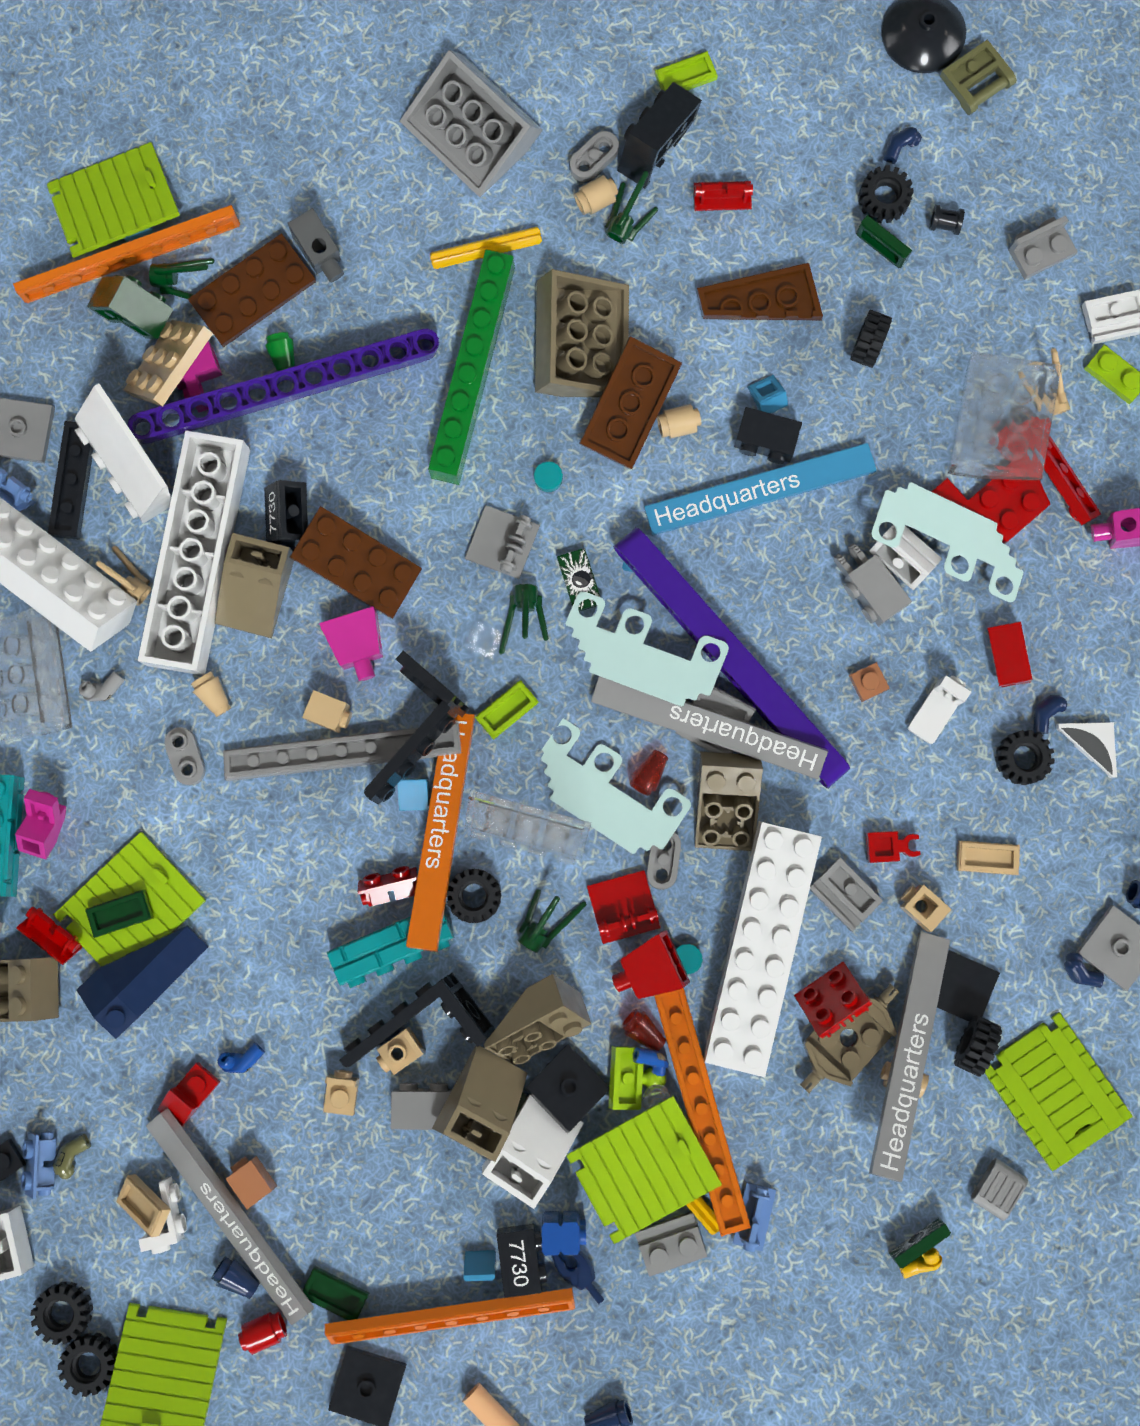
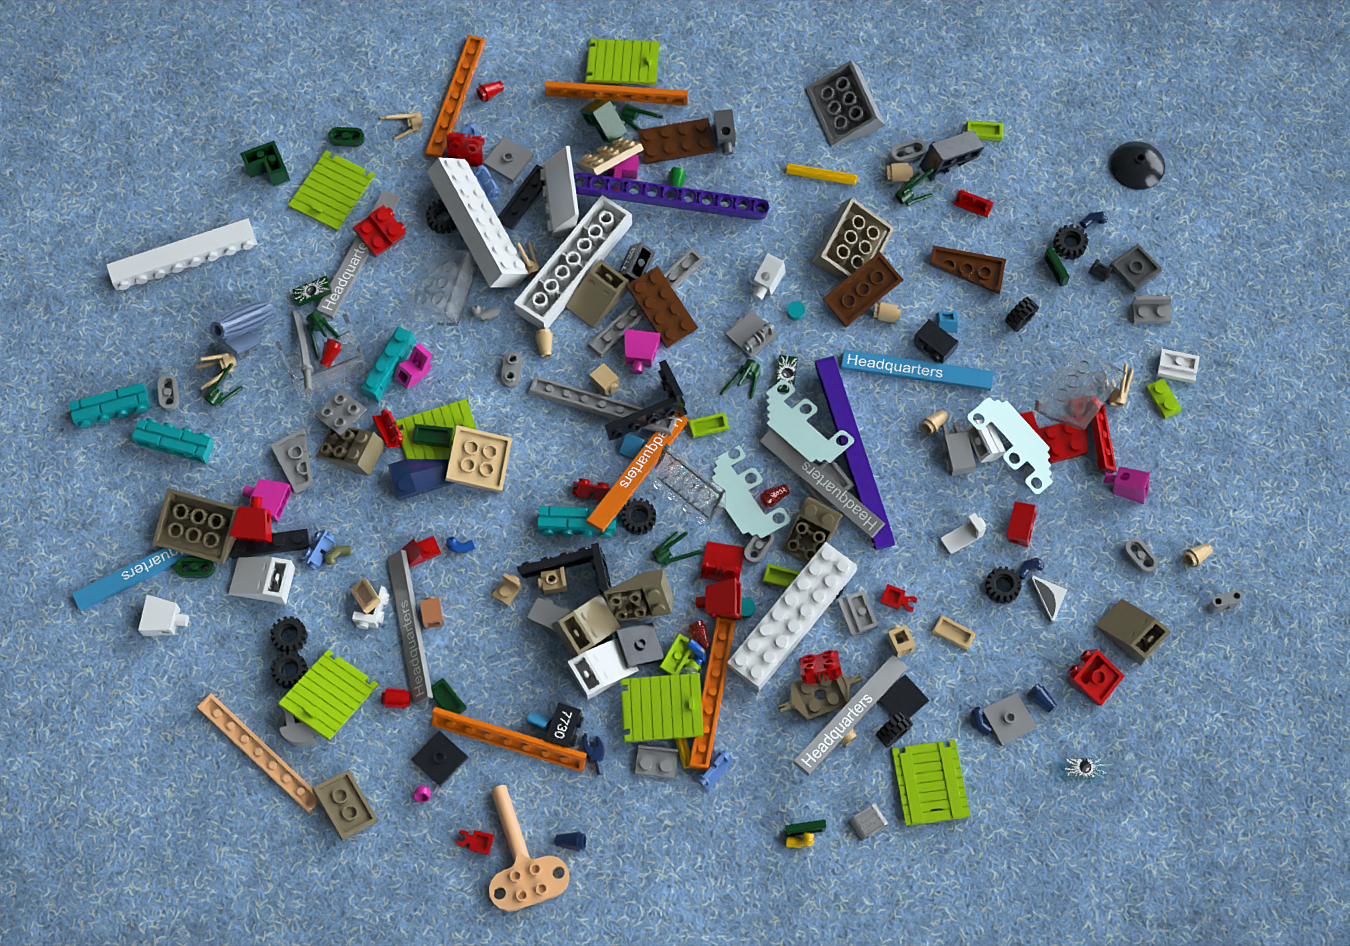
camera: 25 degrees right, 15 degrees down
(204, 920) = (478, 459): none -> tan plate
(235, 1278) = (395, 661): dark blue cone -> none
(317, 591) = (633, 314): none -> light grey tile
(472, 367) = (781, 231): green brick -> none
(486, 433) = (768, 276): none -> white torso
(562, 1233) = (597, 719): blue brick -> none
(716, 888) = (779, 575): none -> lime tile
(820, 559) = (933, 423): none -> tan cone
(869, 682) = (930, 503): nougat plate -> none
(973, 69) = (1157, 196): olive plate -> none
(993, 193) = (1136, 267): none -> dark grey plate

